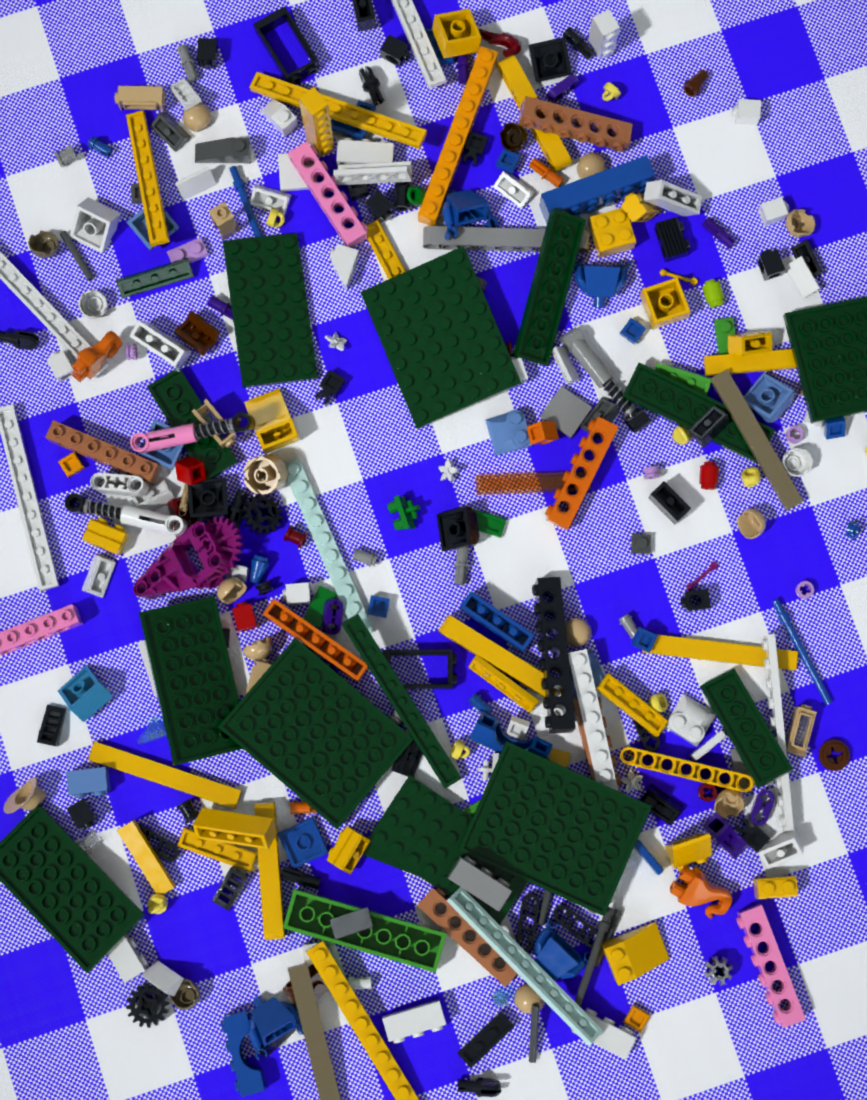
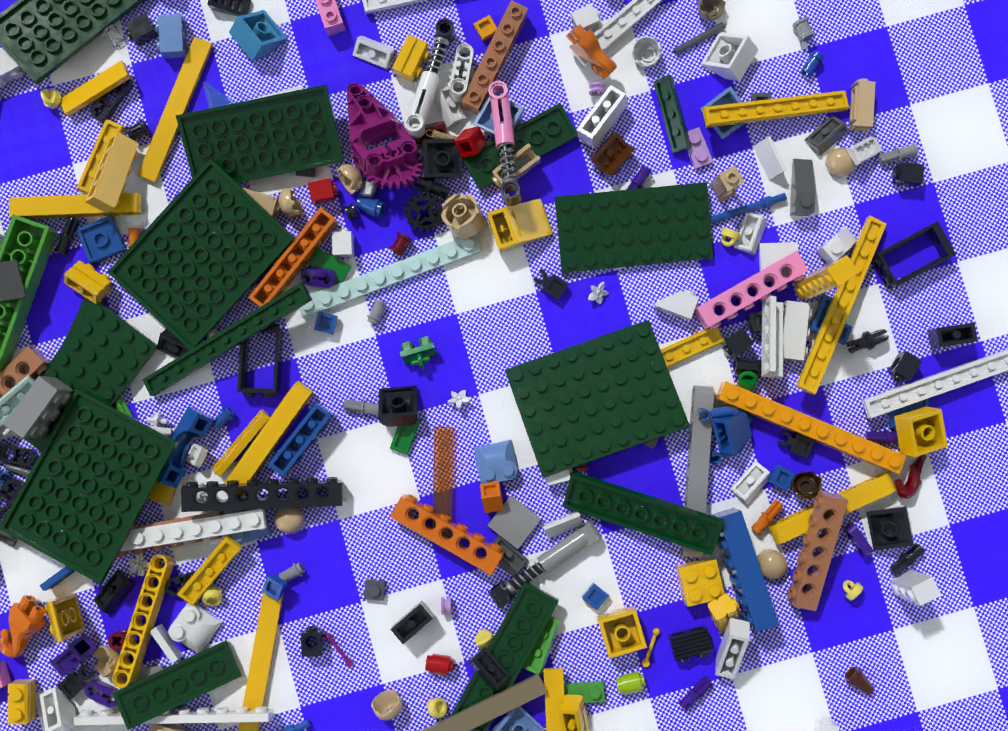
camera: 90 degrees right, 5 degrees up
(232, 871) = (73, 178): black slope -> none
(457, 749) = (179, 394): light yellow tile -> none
(600, 280) = (649, 566): blue torso -> none

